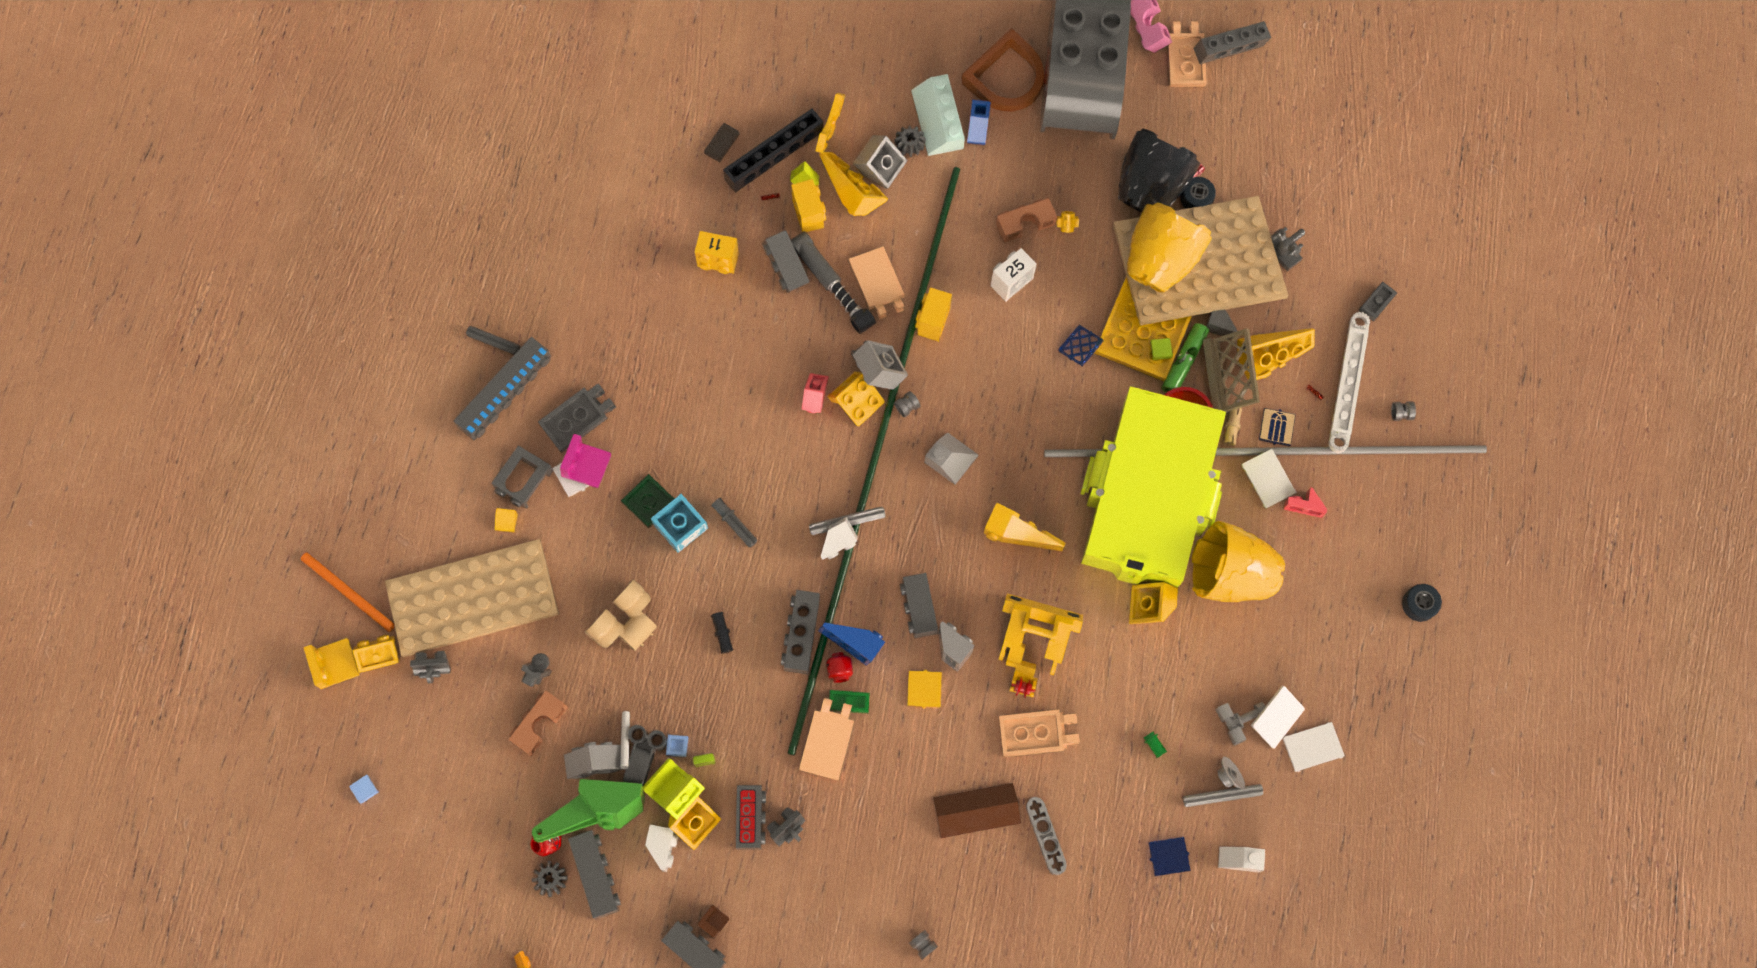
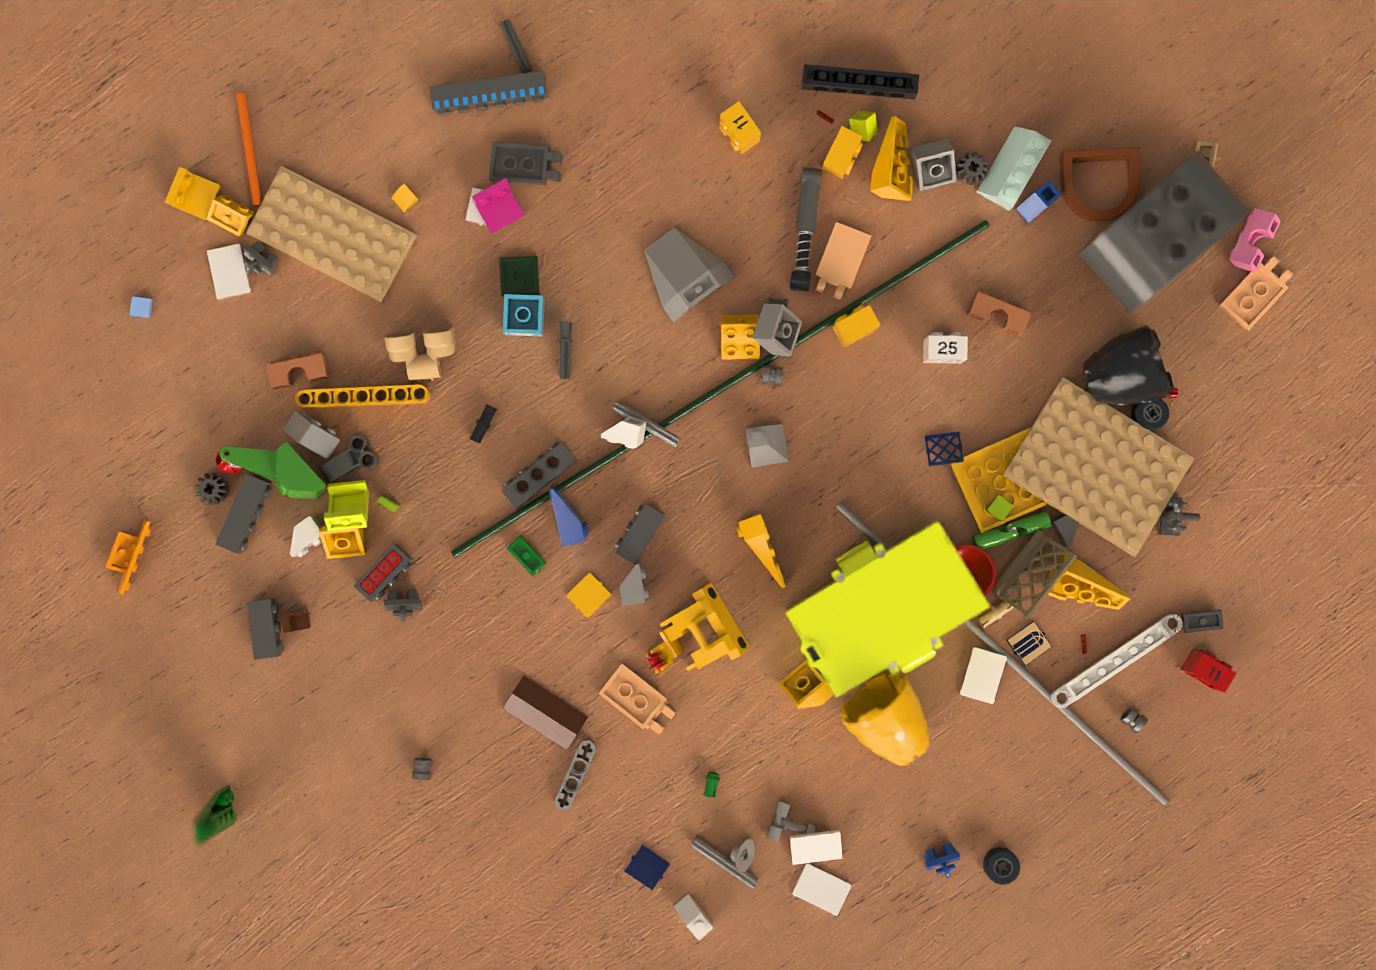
camera: 50 degrees right, 15 degrees up
(412, 698) = (228, 271): none -> white piece
(521, 497) = (433, 191): dark grey panel -> none
(536, 670) = (327, 332): dark grey hips -> none
(598, 699) = (353, 396): none -> yellow beam
(624, 759) = (345, 440): white piece -> none
(677, 746) = (380, 475): light blue tile -> none
(721, 142) = (828, 37): clear smoke tile -> none
(771, 389) = (684, 272): none -> light grey wedge
(785, 261) = (784, 181): dark grey wedge -> none
(814, 393) = (713, 304): coral slope -> none
(827, 741) = (485, 570): light nougat tile -> none
(830, 126) = (924, 99): yellow tile -> none
(839, 667) = (541, 526): red head -> none
(1067, 221) = (1028, 344): yellow gear -> none
(1165, 247) = (1071, 439): yellow piece -> none
(1232, 42) = (1301, 316): dark grey brick -> none
(1310, 506) = (993, 724): coral slope -> none
(1378, 631) = (933, 861): none -> blue hips
(1418, 328) = (1209, 671): none -> red brick

